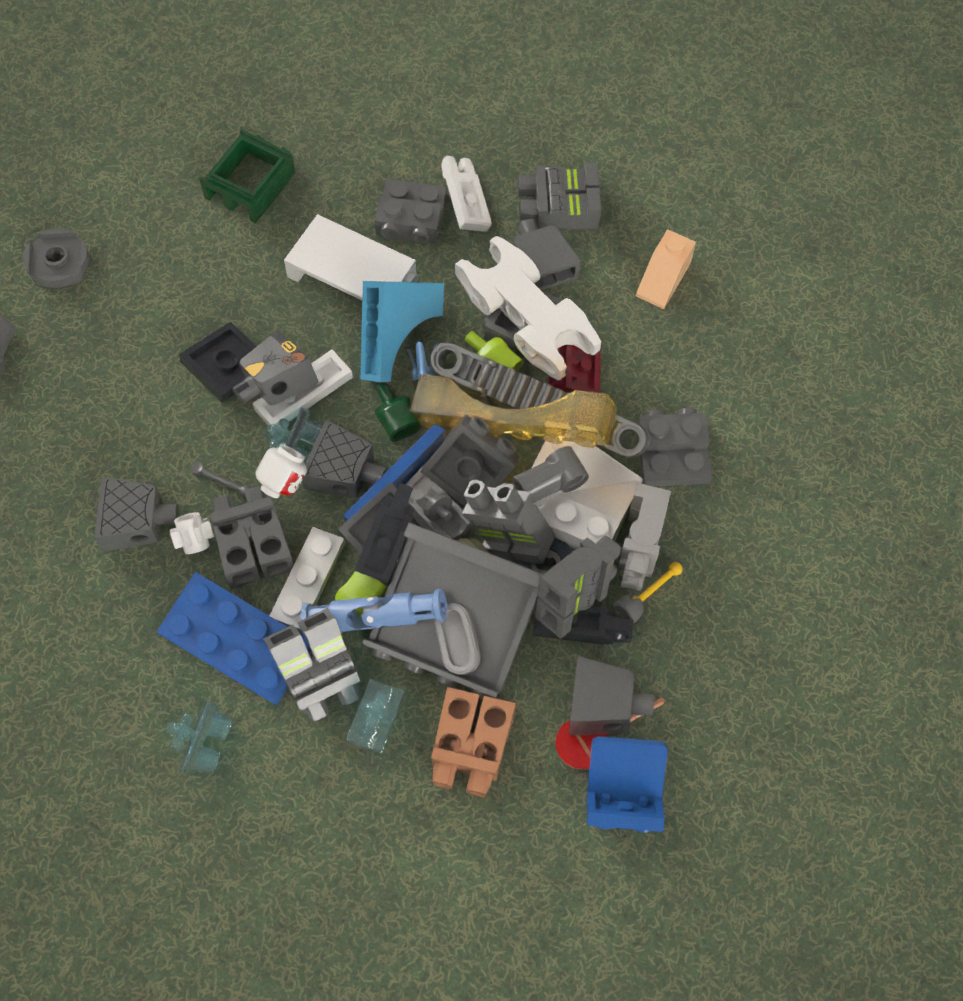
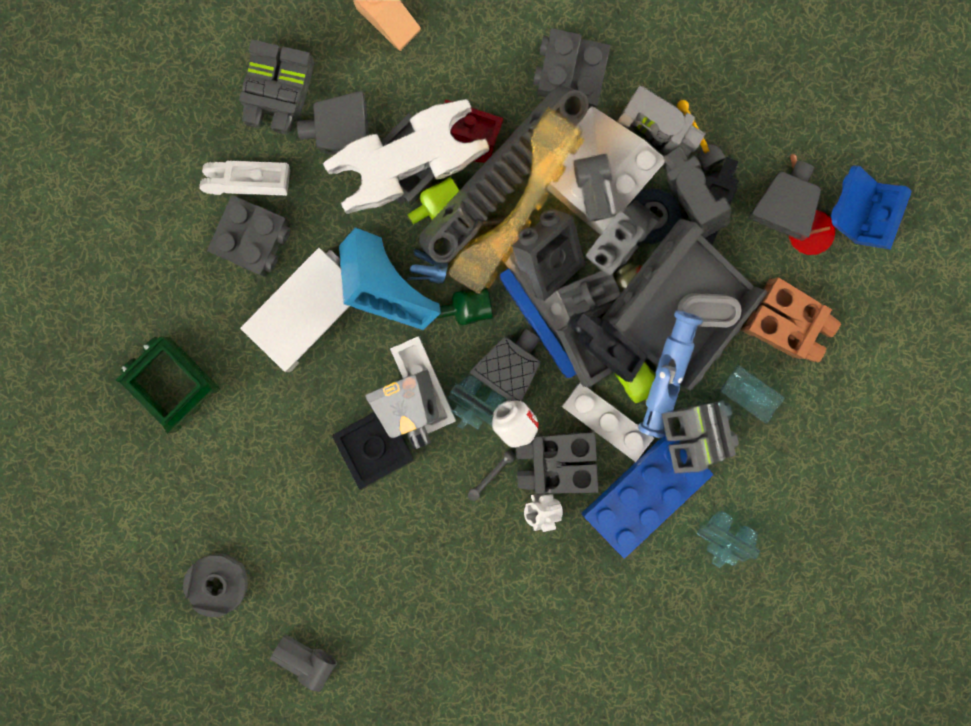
camera: 70 degrees left, 25 degrees up
(130, 514) = (509, 561): dark grey torso -> none

